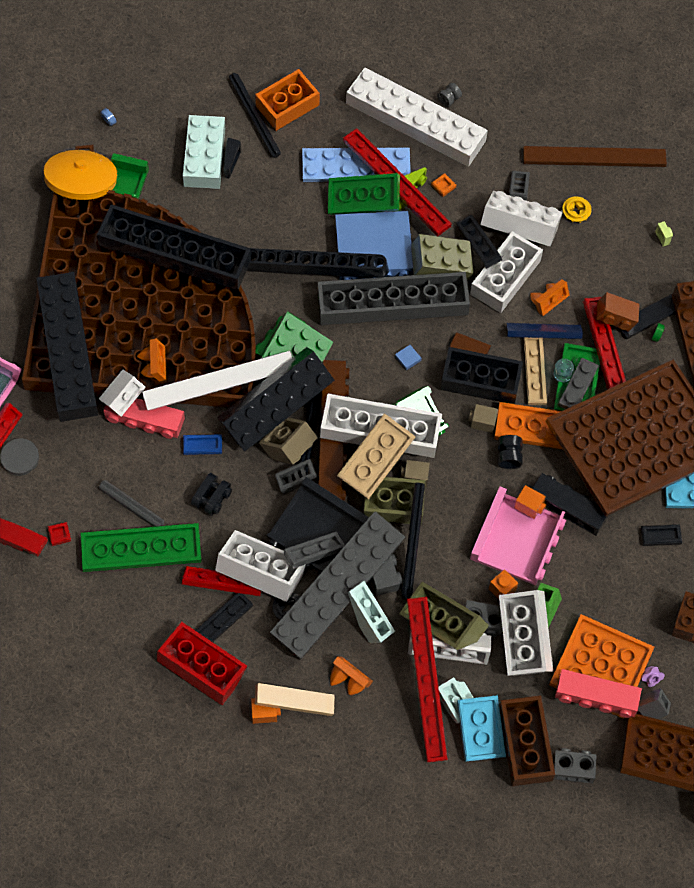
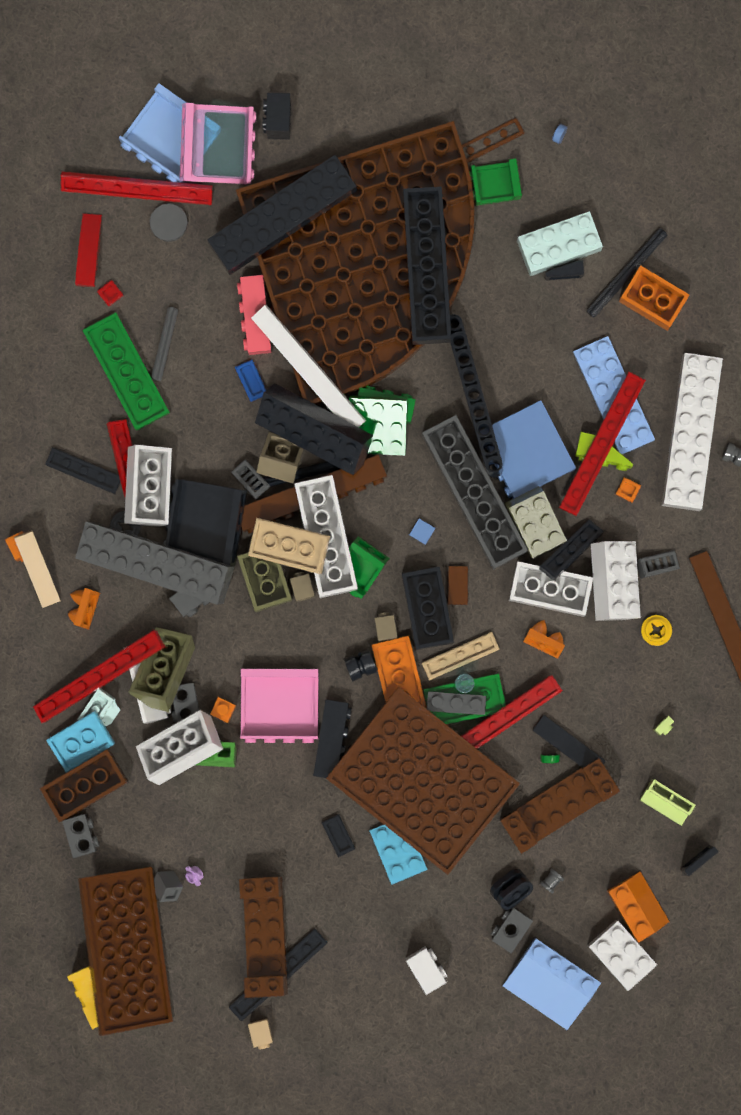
camera: 70 degrees right, 20 degrees up
(80, 174) = (476, 139): light orange dish -> none
(122, 392) = (259, 286): white panel -> none
(156, 355) = (310, 299): orange tile -> none
(201, 663) = (37, 473): red slope -> none
(212, 505) = (209, 419): black brick -> none
(314, 550) = (179, 527): dark grey plate -> none
(364, 194) = (574, 418): green plate -> none
(369, 614) = (139, 602): light aqua slope -> none
(413, 539) = (229, 611): black axle -> none
(530, 502) = (314, 704): orange brick -> none
(544, 330) = (505, 649): dark blue tile -> none
(598, 693) = (152, 832): coral brick -> none
(604, 654) = (185, 826): orange plate -> none
(617, 311) = (548, 712): dark orange brick -> none

